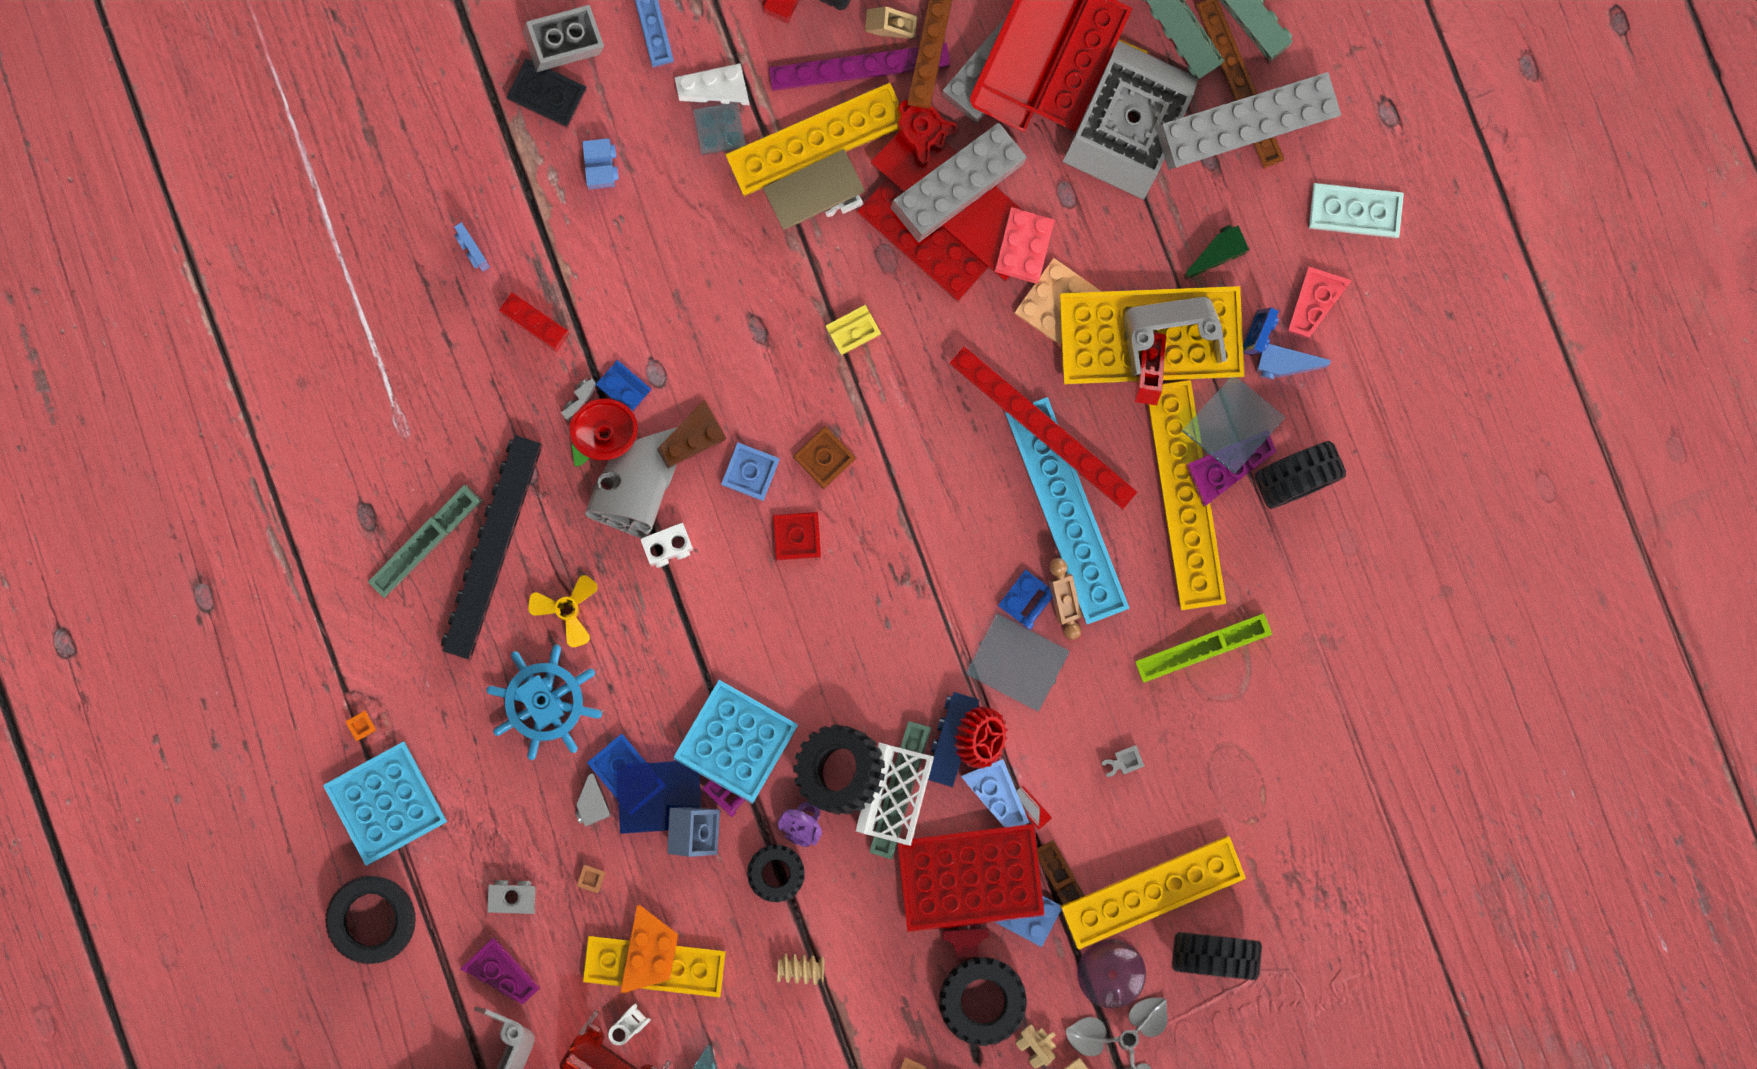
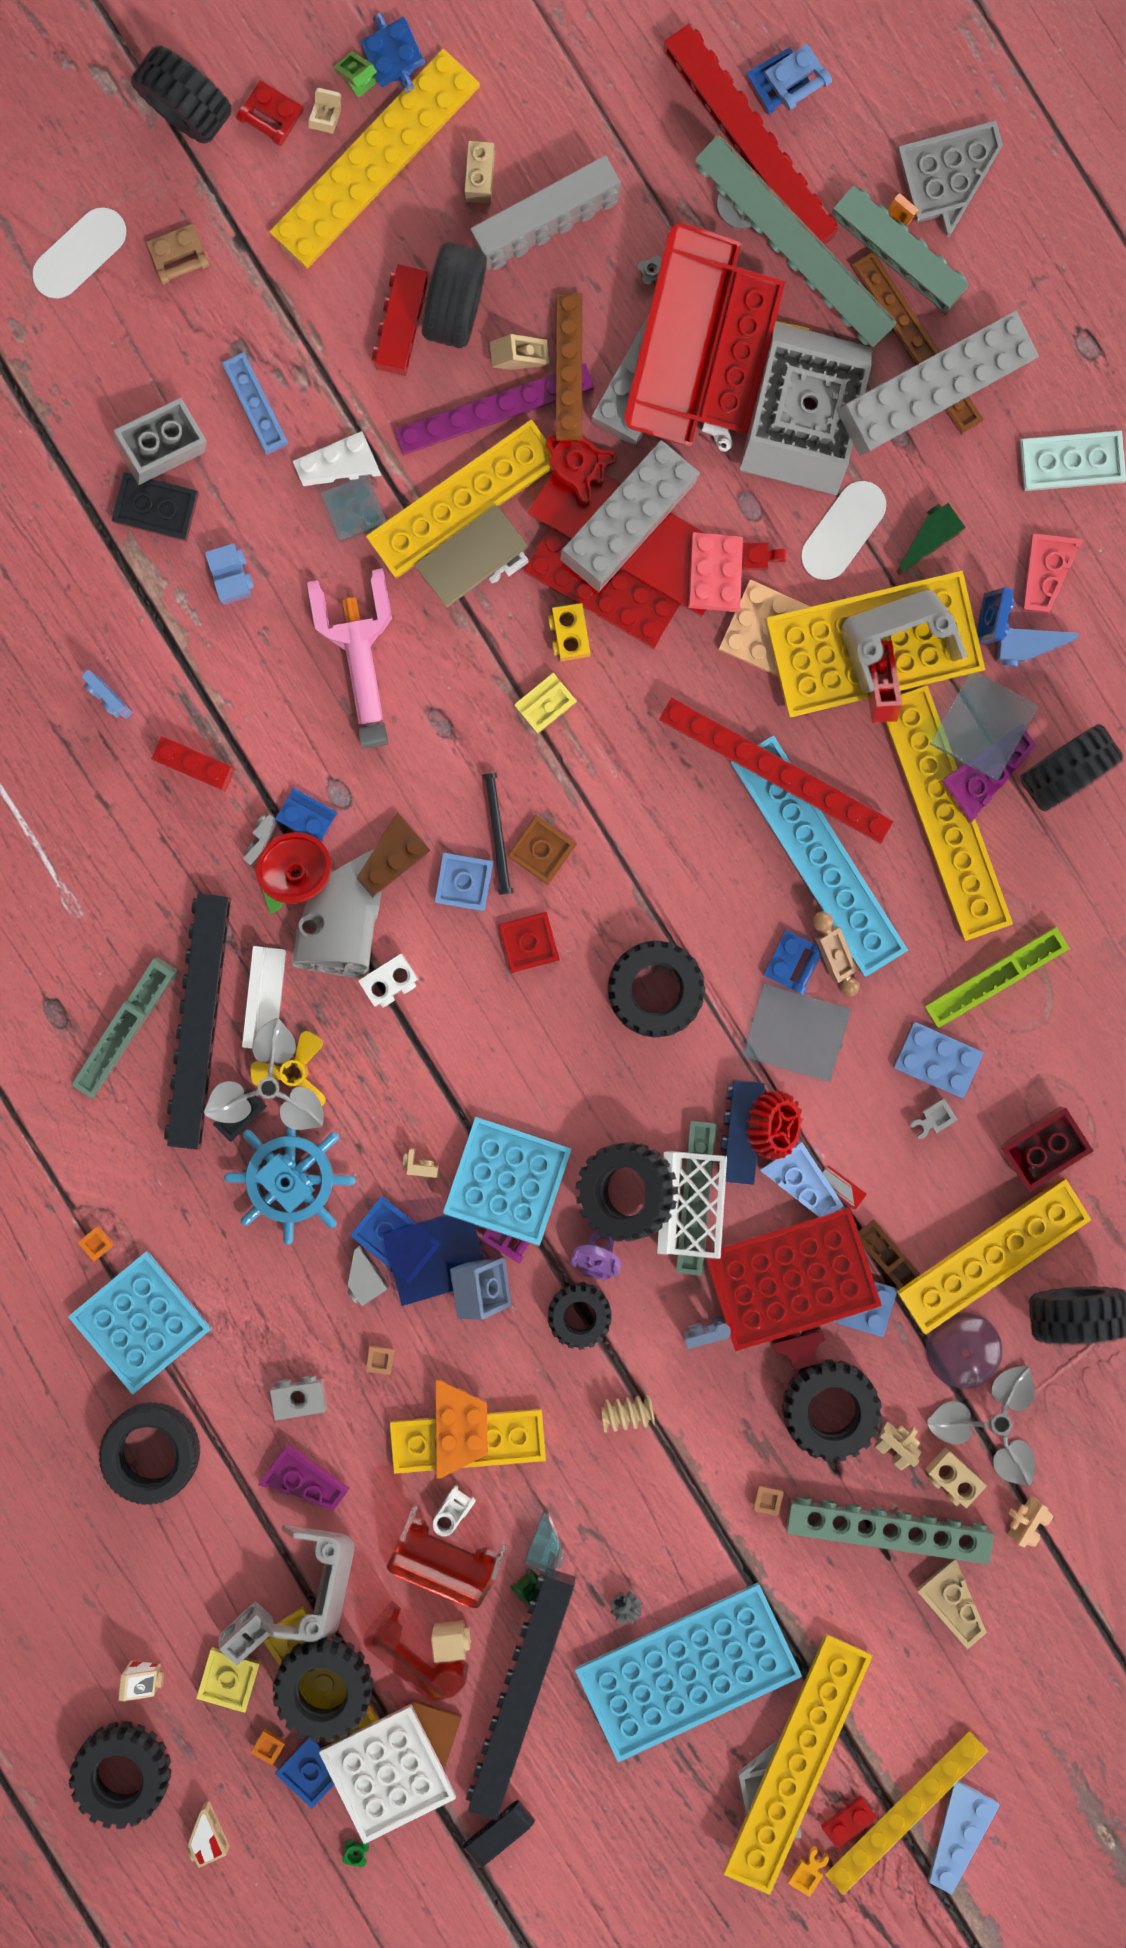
camera: 10 degrees left, 5 degrees up
(511, 637) = (232, 1130): none -> black plate
(554, 539) = (263, 990): none -> white panel
(567, 641) = (299, 1111): none -> light grey plant
(664, 716) = (424, 1168): none -> tan bracket
(699, 242) = (356, 639): none -> bright pink piece
(788, 435) = (497, 833): none -> black bar
(878, 910) = (700, 1335): none -> sand blue plate
(892, 273) = (576, 631): none -> yellow brick
(922, 575) = (690, 981): none -> black tyre
(1053, 129) = (721, 436): none -> white arm
(1064, 239) = (757, 556): none -> red plate
(1138, 711) = (938, 1060): none -> medium blue plate
(1144, 231) = (843, 530): none -> white sticker
(1216, 806) = (1046, 1148): none -> dark red brick

